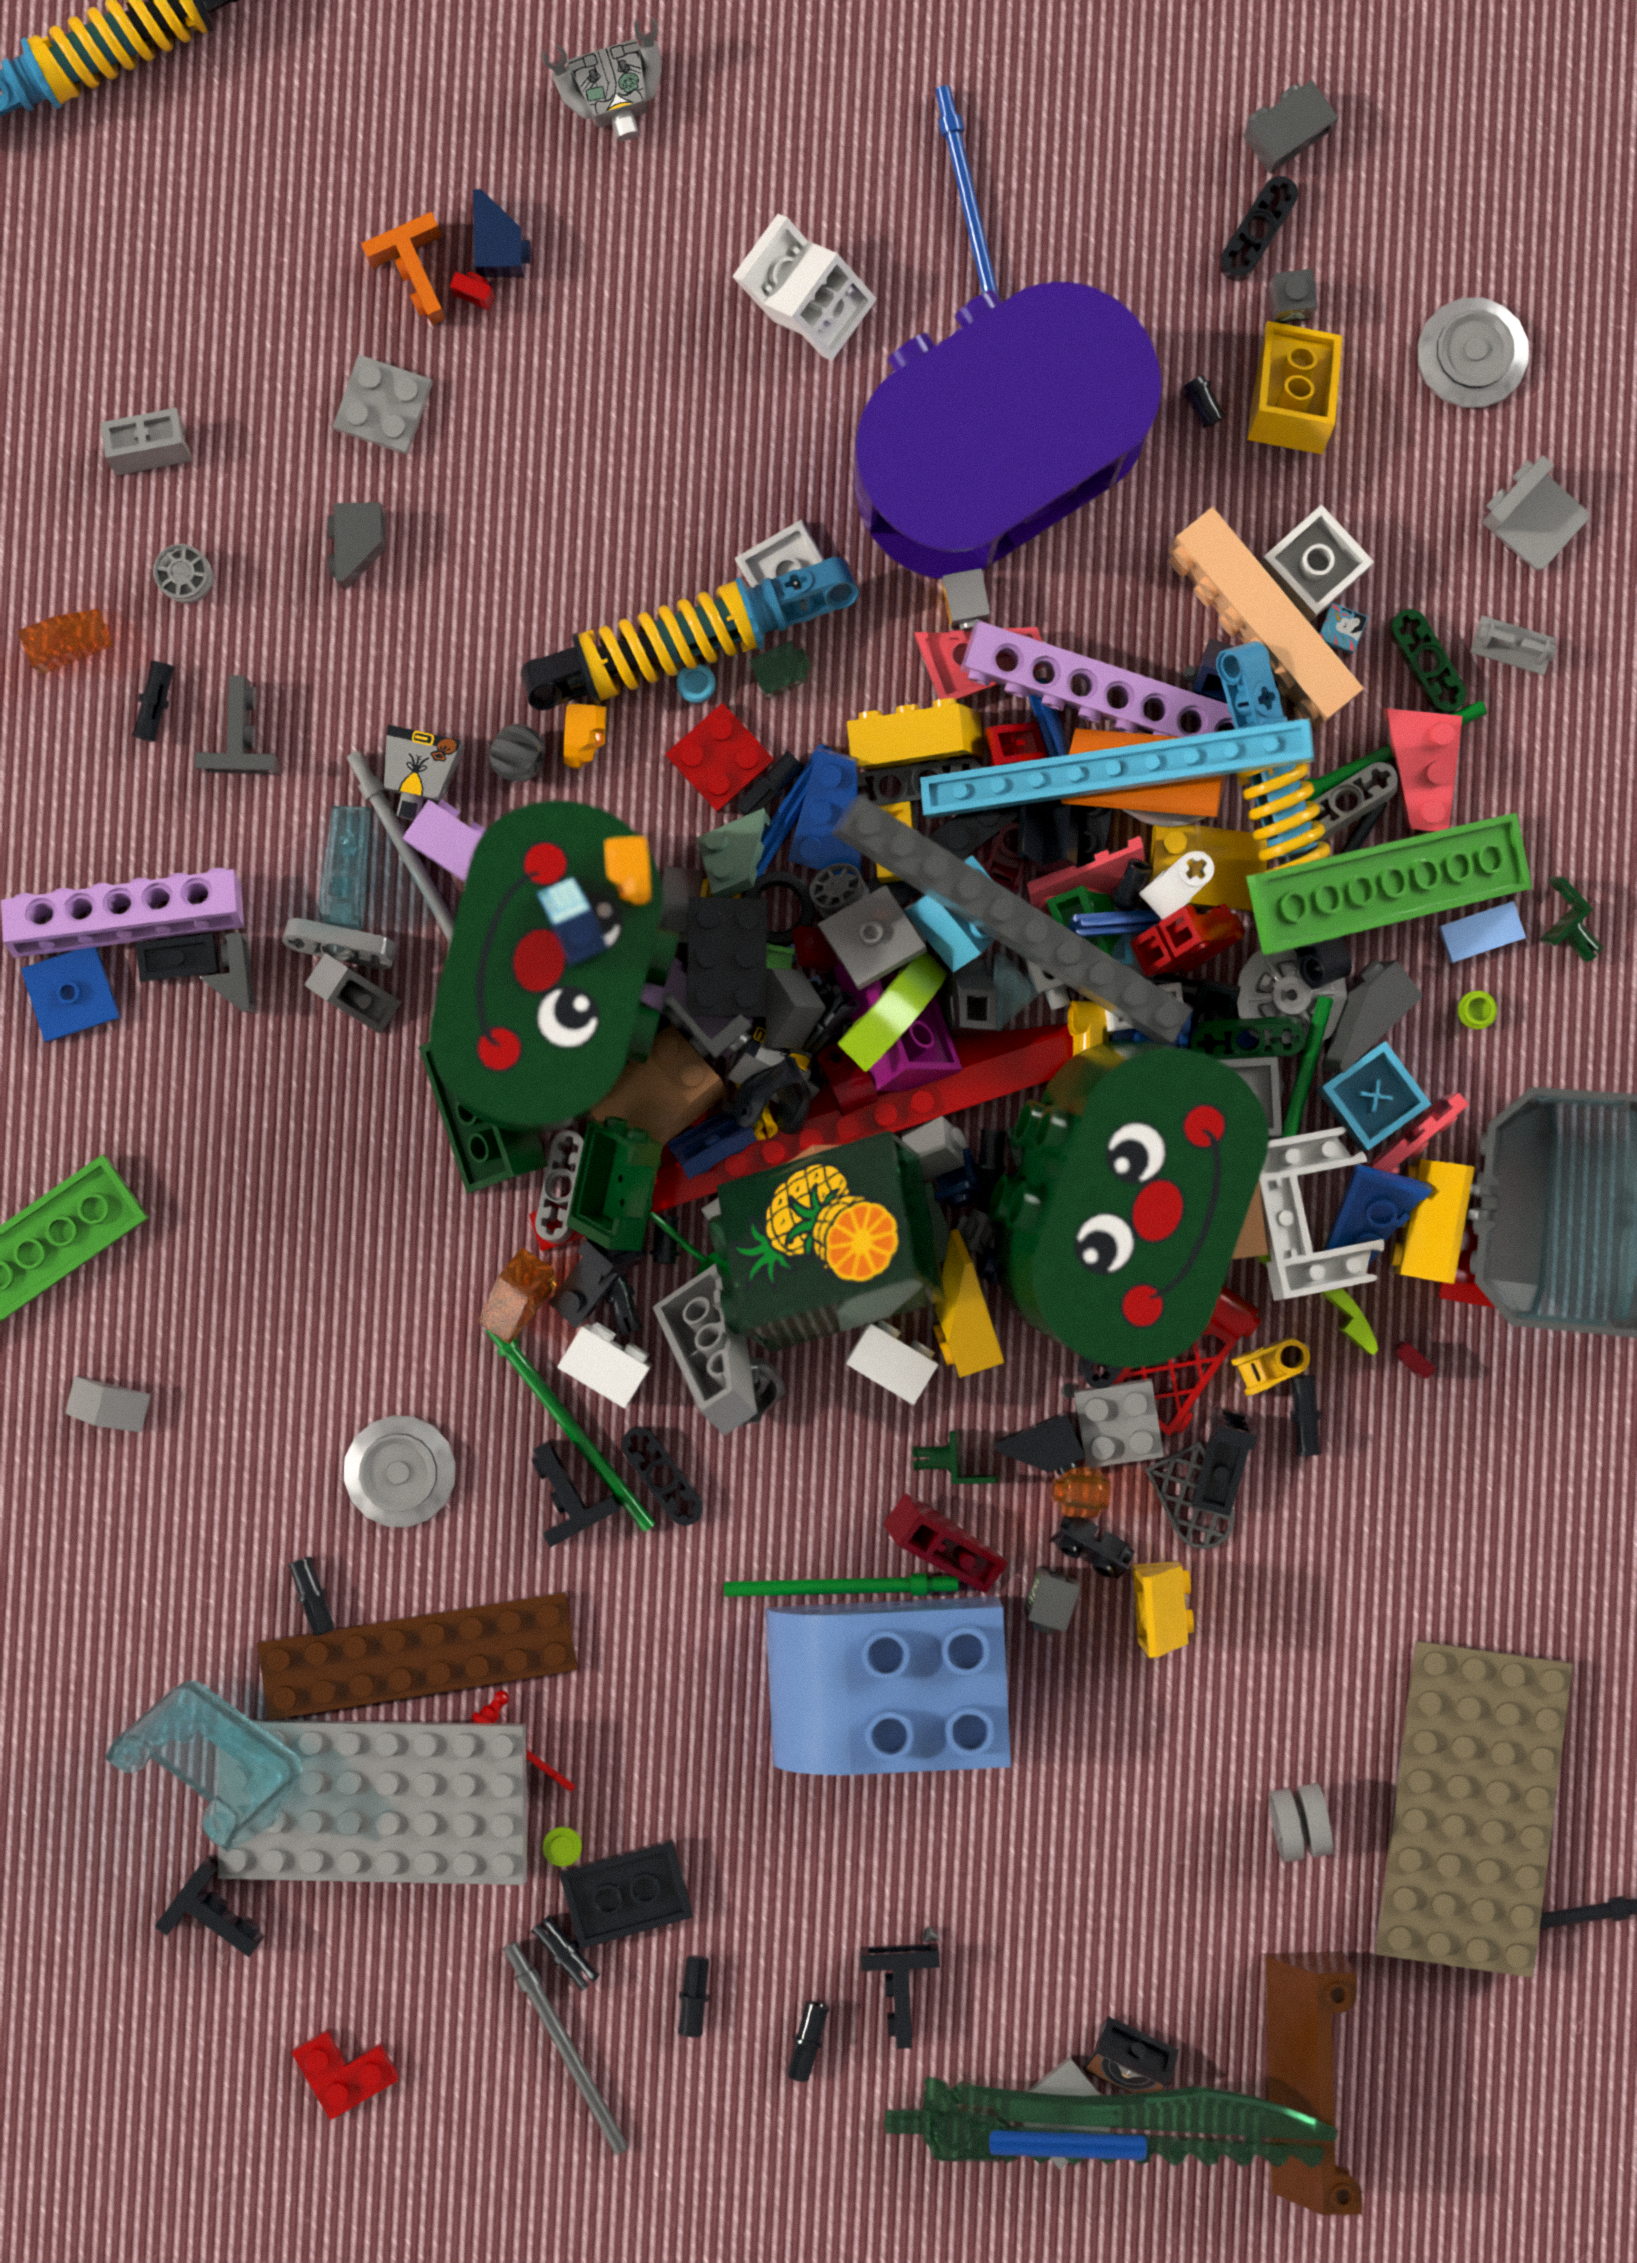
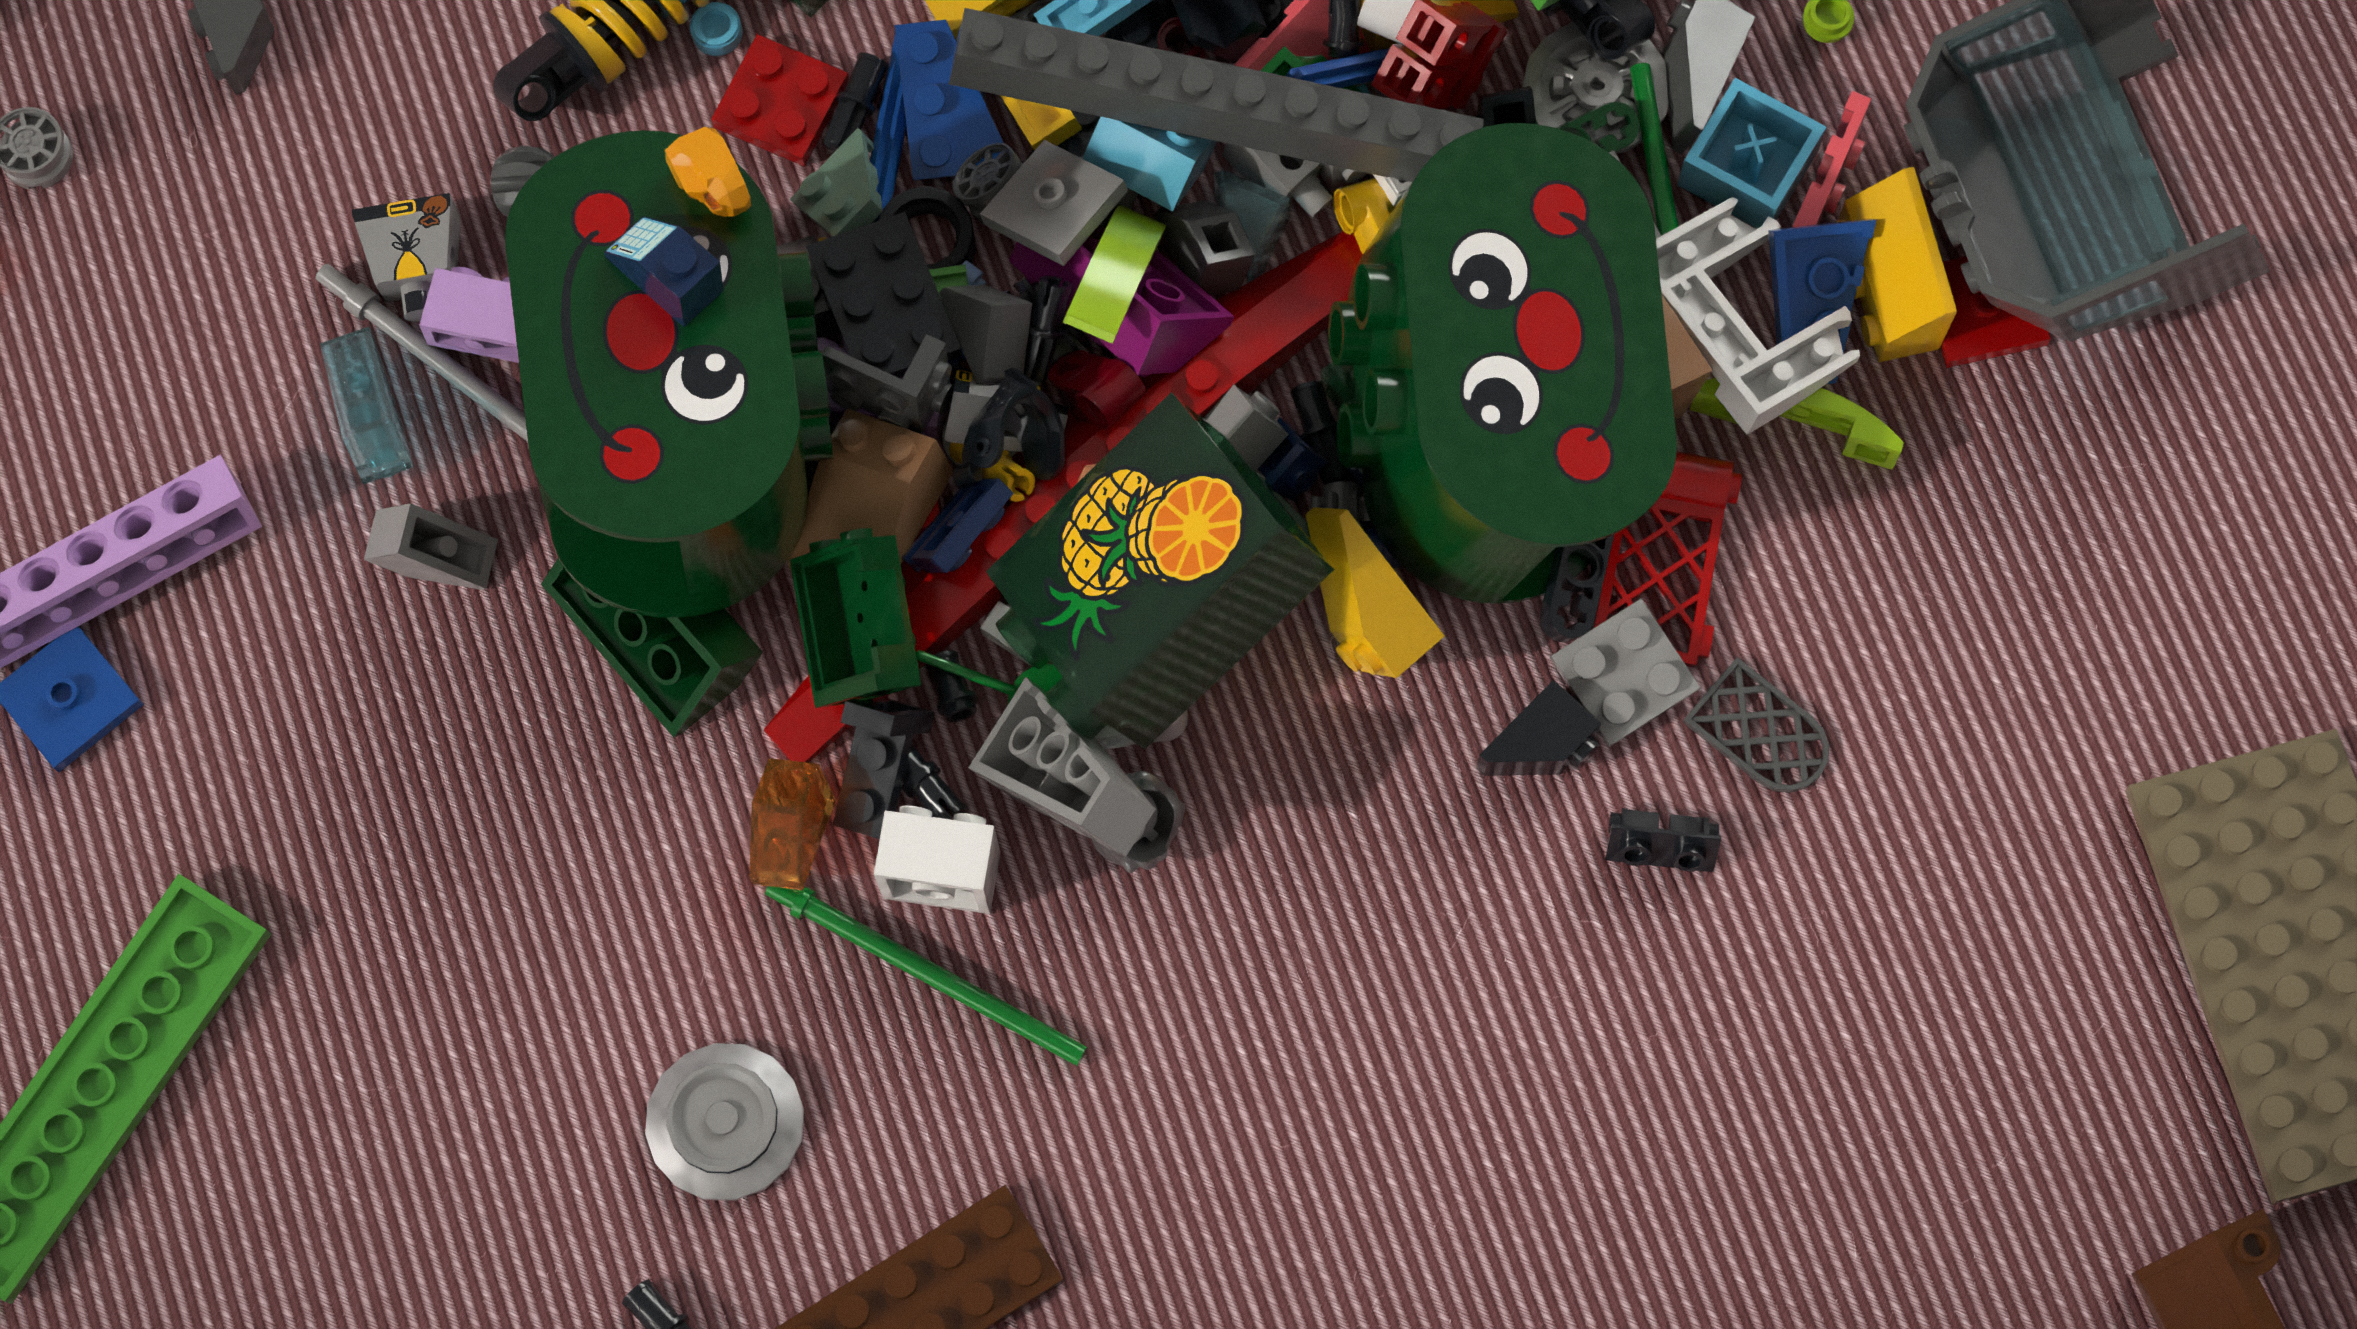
camera: 20 degrees left, 15 degrees down
(107, 1405) = (302, 1193): light grey slope -> none
(153, 701) = (47, 309): black pin -> none
(177, 957) = (189, 597): black plate -> none
(238, 984) = (272, 594): dark grey slope -> none
(240, 737) = (181, 326): dark grey bracket -> none
(340, 943) = (352, 490): light grey beam -> none
(546, 1212) = (775, 658): light grey beam -> none
(567, 1497) = (960, 1060): black bracket -> none
(583, 733) = (596, 114): light orange rock -> none
(687, 1493) = (1029, 973): black beam -> none
(813, 949) = (988, 256): dark red tile -> none
(888, 1686) = (1480, 1113): medium blue brick -> none
(891, 1361) = (1302, 705): white brick -> none
(917, 1585) = (1460, 983): green bar -> none
(943, 1543) = (1473, 912): dark red slope -> none
(949, 1458) = (1429, 804): dark green bracket -> none
(1051, 1600) = (1640, 918): dark grey brick -> none
(1067, 1391) = (1541, 665): light grey piece -> none
(1081, 1492) = (1617, 774): clear orange head -> none
(1161, 1606) = (1781, 868): yellow slope -> none
(1224, 1460) = (1778, 659): black bracket -> none
(1269, 1365) = (1774, 527): yellow piece -> none
(1300, 1822) = (2095, 1068): light grey wheel -> none
(1306, 1415) = (1853, 567): black pin -> none
(1413, 1360) = (1953, 444): dark red tile -> none

